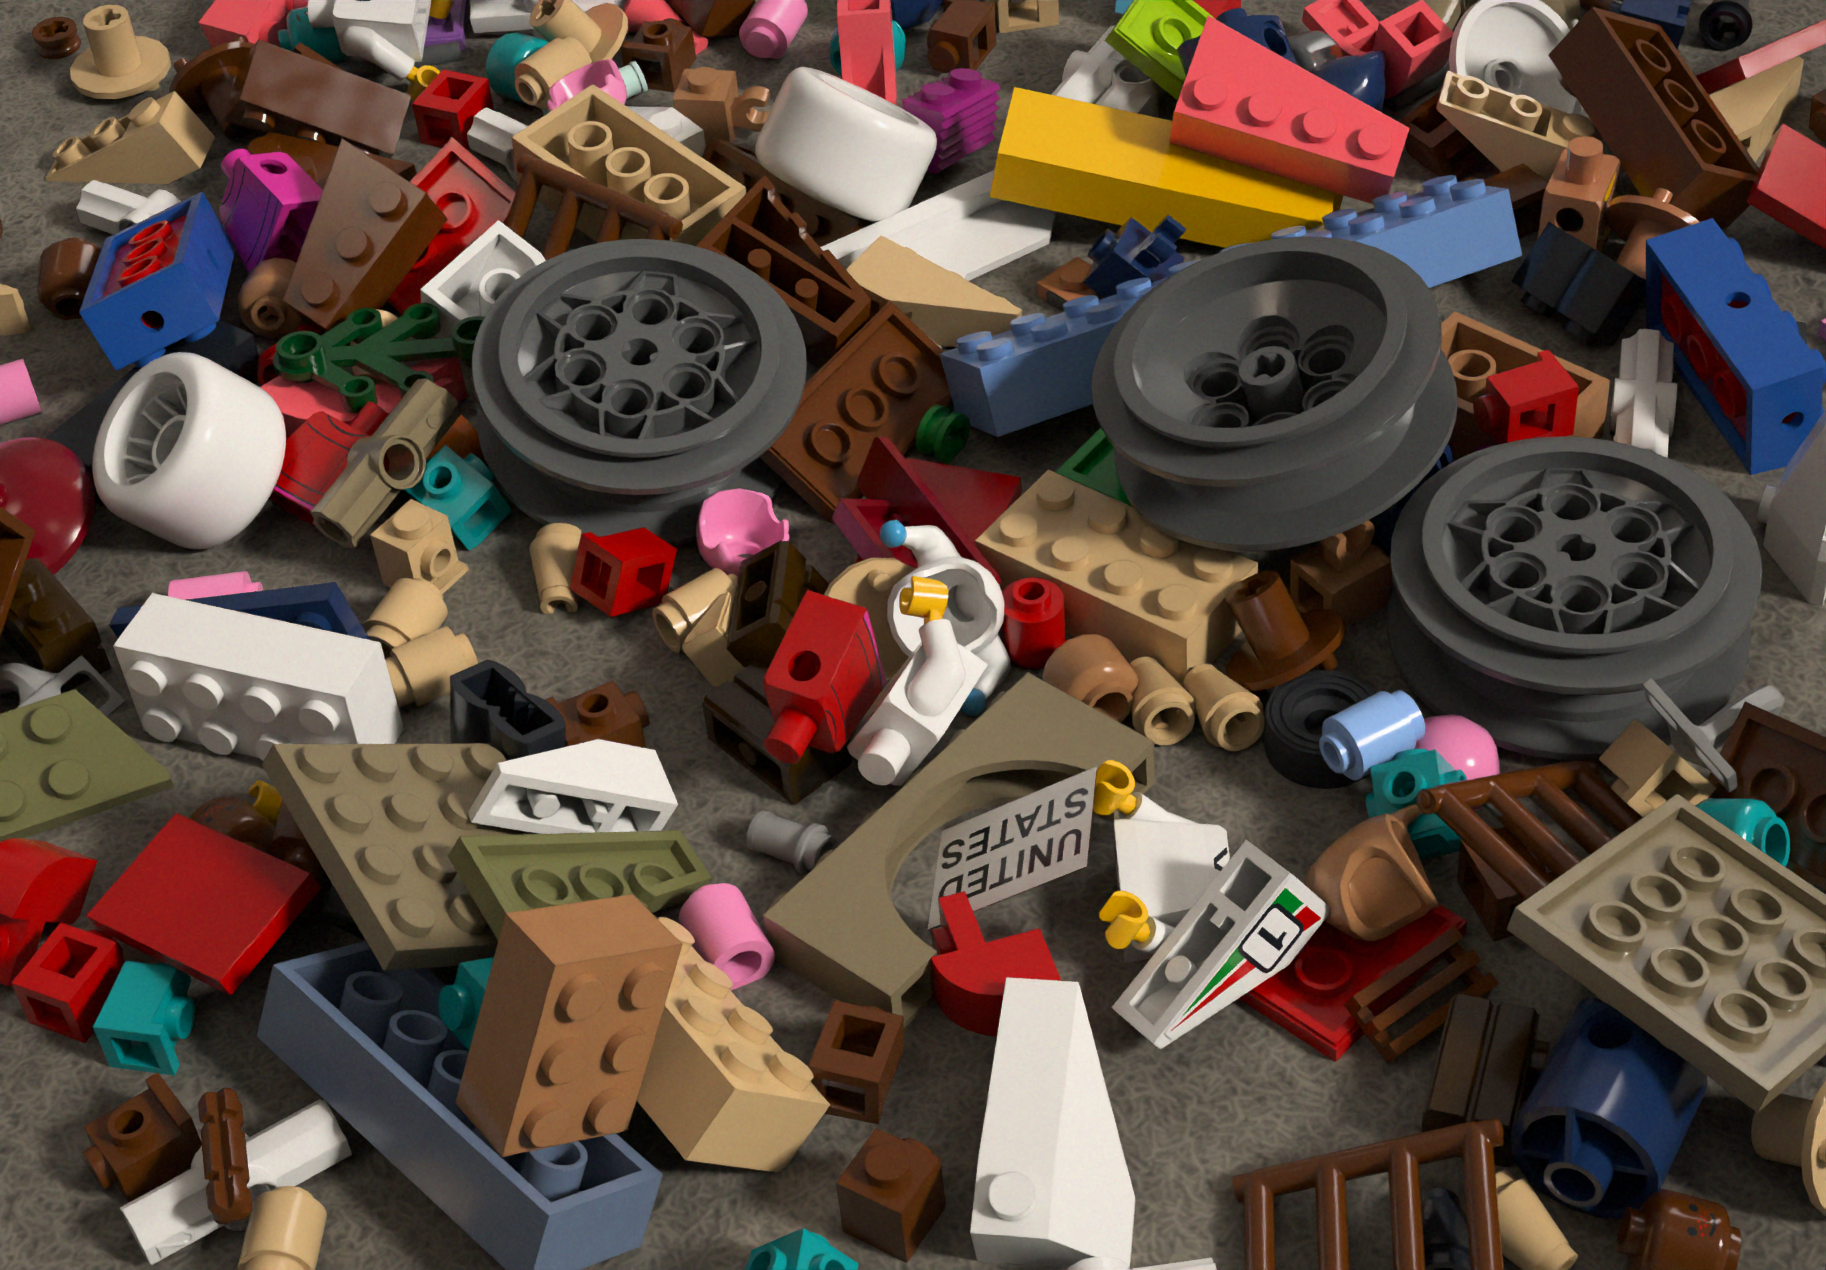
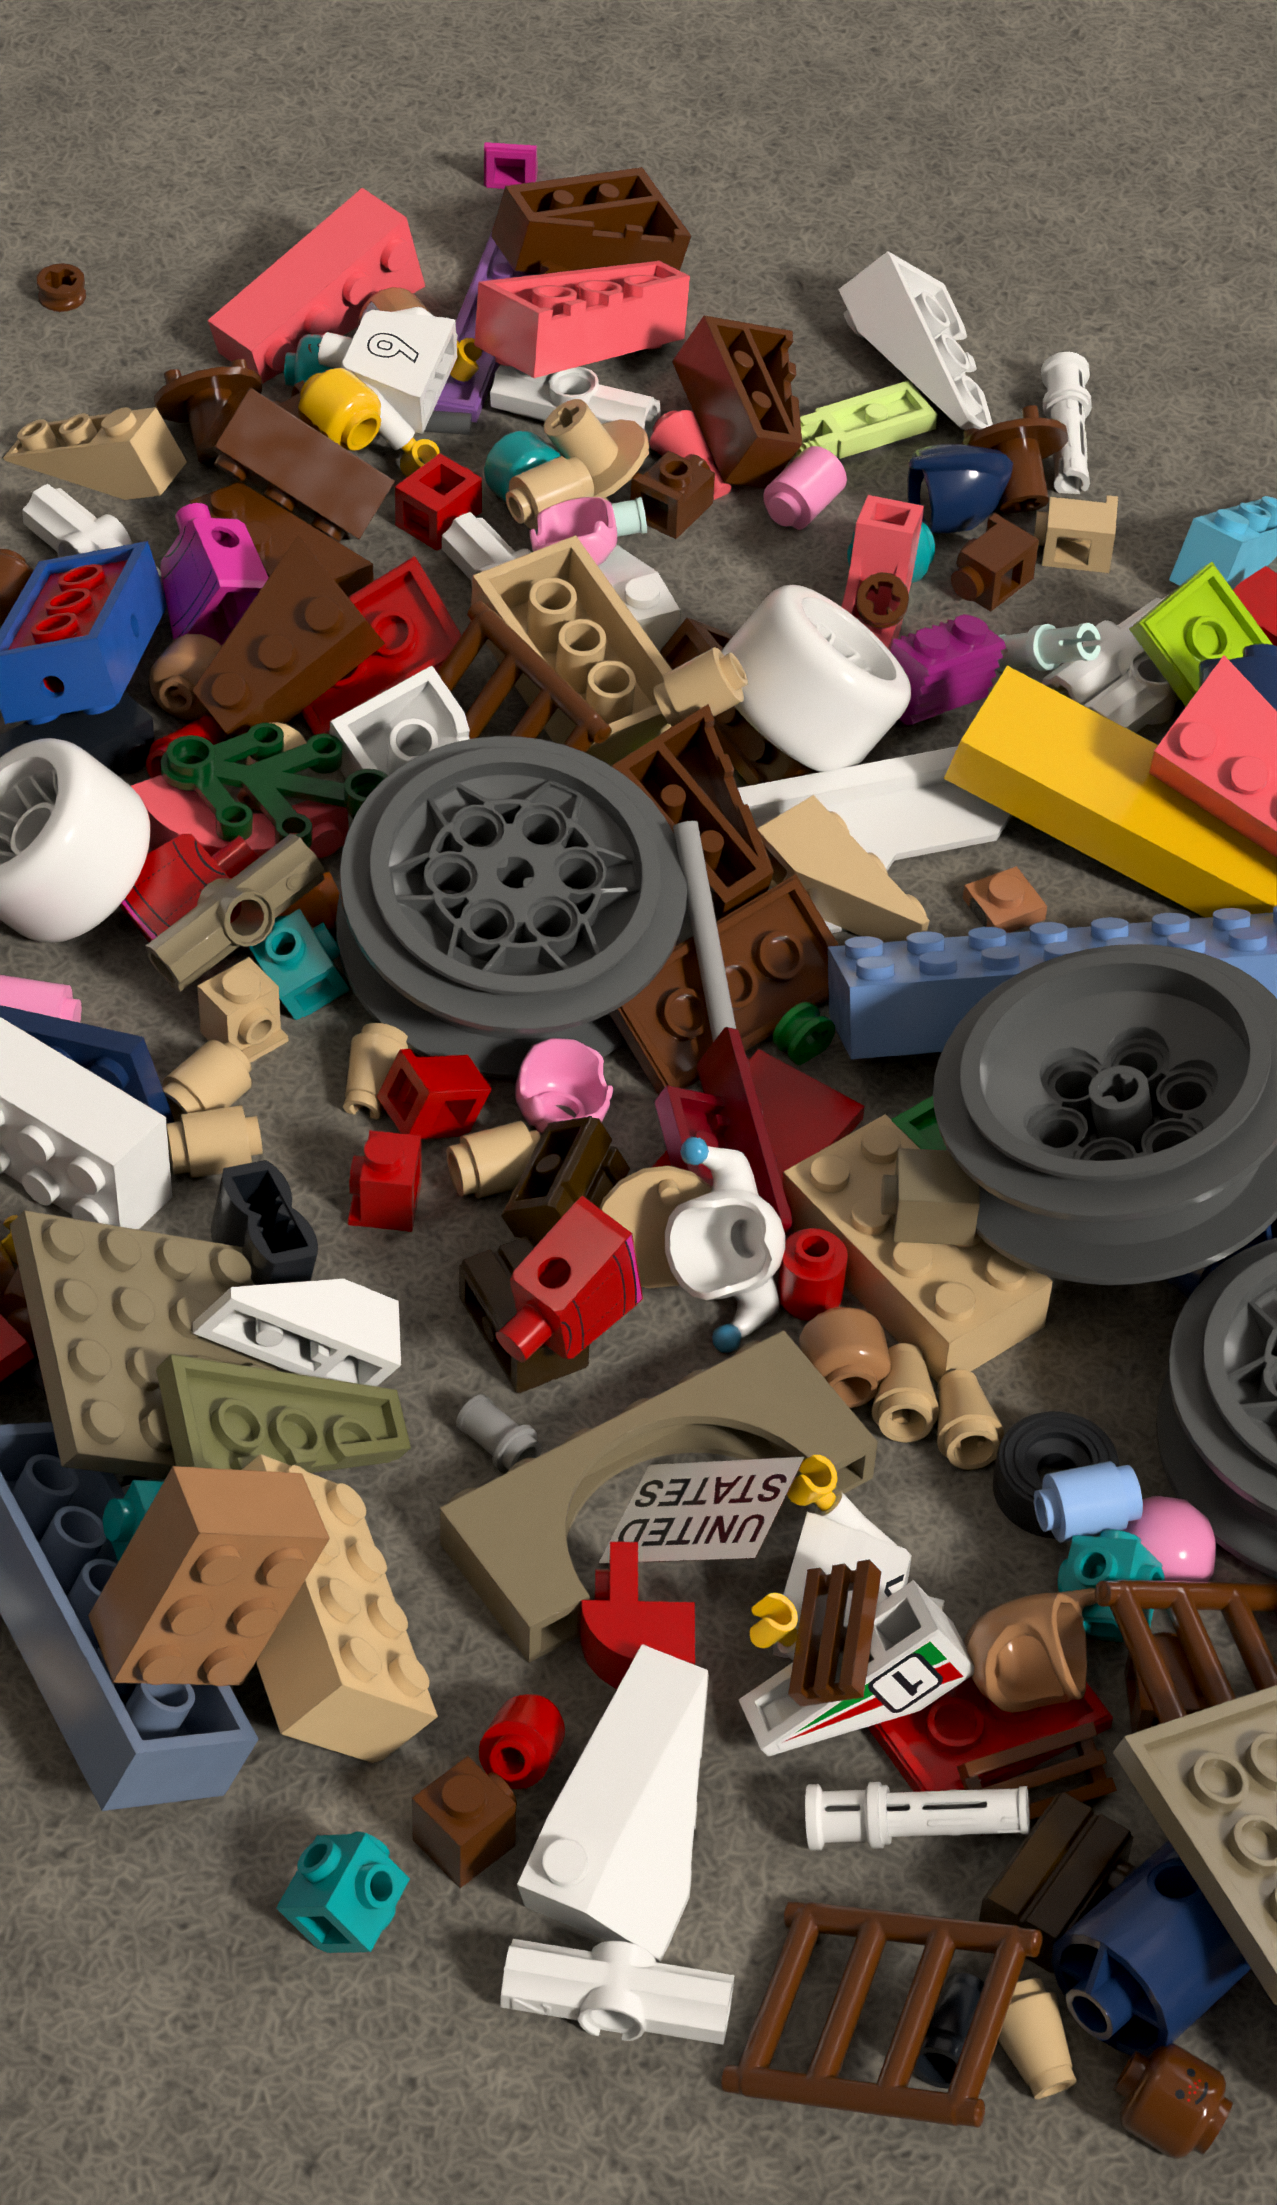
camera: 10 degrees right, 5 degrees up
(117, 60) = (114, 337): tan piece -> none
(345, 46) = (341, 408): none -> yellow head
(604, 715) = (359, 1252): reddish brown brick -> none
(605, 649) = (386, 1182): none -> red brick
(708, 643) = (489, 1197): tan slope -> none
(713, 103) = (705, 581): medium nougat brick -> none
(727, 933) = (403, 1513): bright pink brick -> none
(749, 162) = (699, 682): none -> tan brick
(825, 360) = (704, 927): none -> light grey bar
(857, 1060) = (479, 1676): reddish brown brick -> none
(892, 67) = (899, 594): none -> reddish brown bush
(921, 1101) = (522, 1740): none -> red brick
(922, 694) = (662, 1329): white torso -> none
(1040, 76) = (1048, 647): none -> light aqua pin
(1125, 516) = (930, 1199): none -> dark tan brick
(1133, 255) = (1066, 892): dark blue brick -> none
(1164, 919) = (824, 1636): none -> reddish brown tile
(1278, 637) = (1046, 1367): reddish brown piece -> none
(1290, 1068) = (880, 1815): none -> white pin
(1342, 575) = (1133, 1321): medium nougat brick -> none

